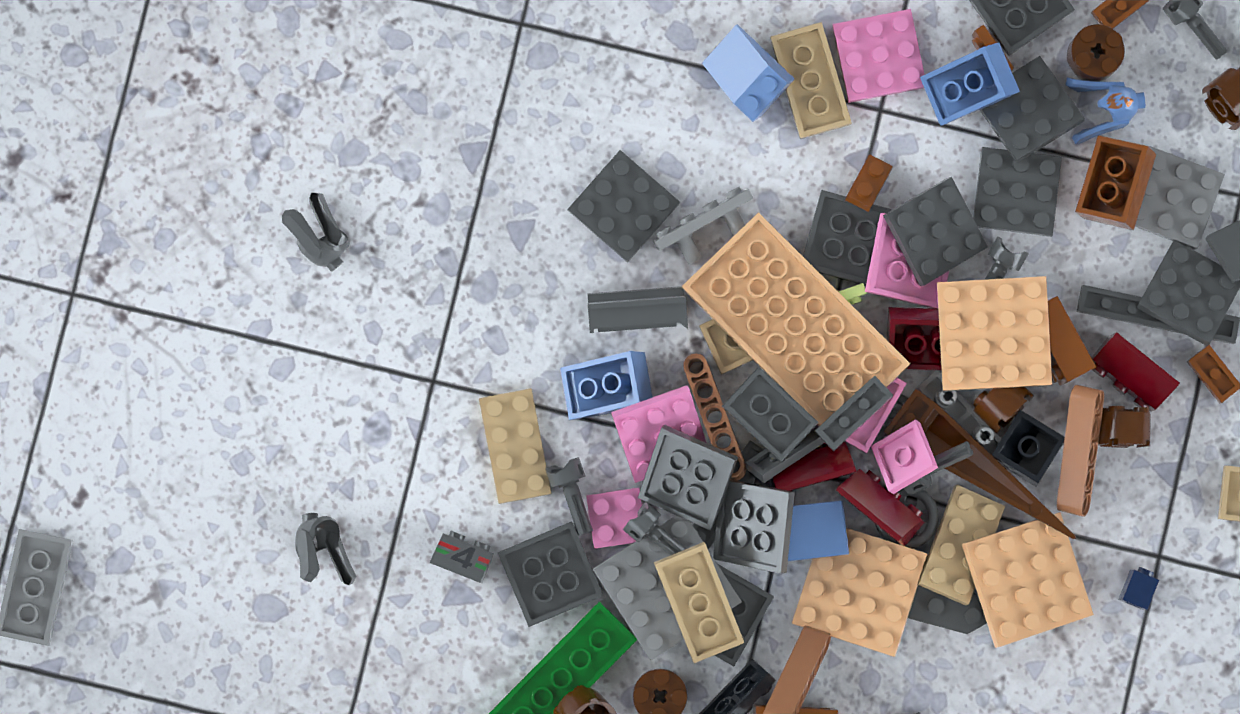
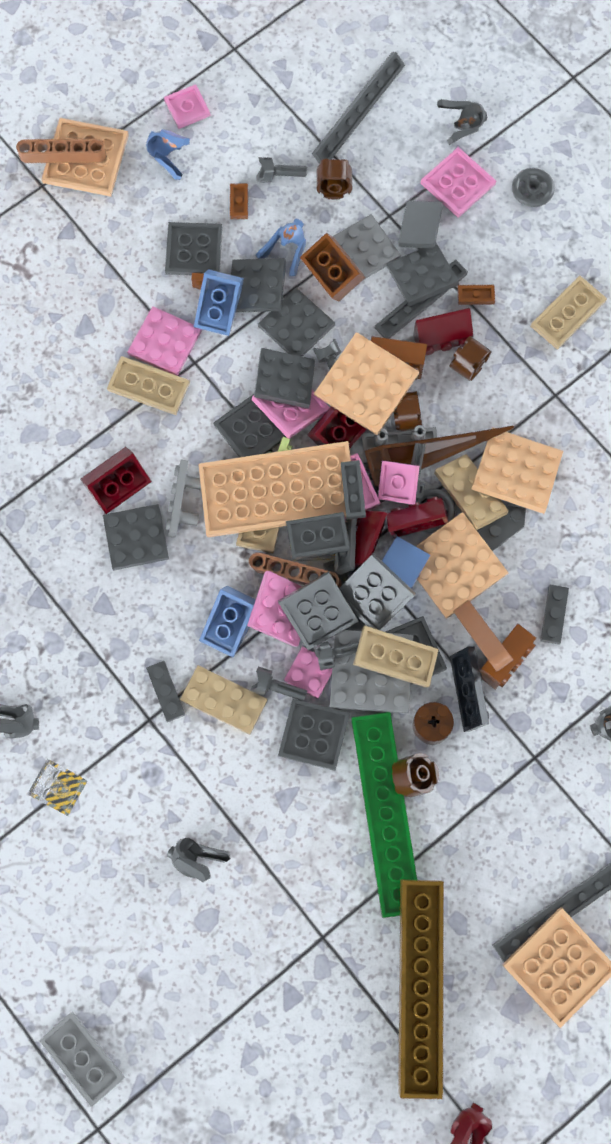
camera: 50 degrees left, 10 degrees down
(285, 340) = (57, 787): none -> clear slope
(462, 557) = (265, 778): dark grey slope -> none
(476, 375) = (165, 691): none -> dark grey plate
(637, 309) = (200, 567): dark grey piece -> none
(670, 132) = (116, 480): none -> dark red slope
(747, 73) = (116, 414): slope -> none
(869, 183) = (229, 395): dark orange plate -> none
(1028, 448) = (444, 415): black slope -> none
(1080, 450) = (466, 388): nougat beam -> none
(1082, 60) = (253, 229): reddish brown brick -> none
(1139, 588) = (566, 416): dark blue brick -> none

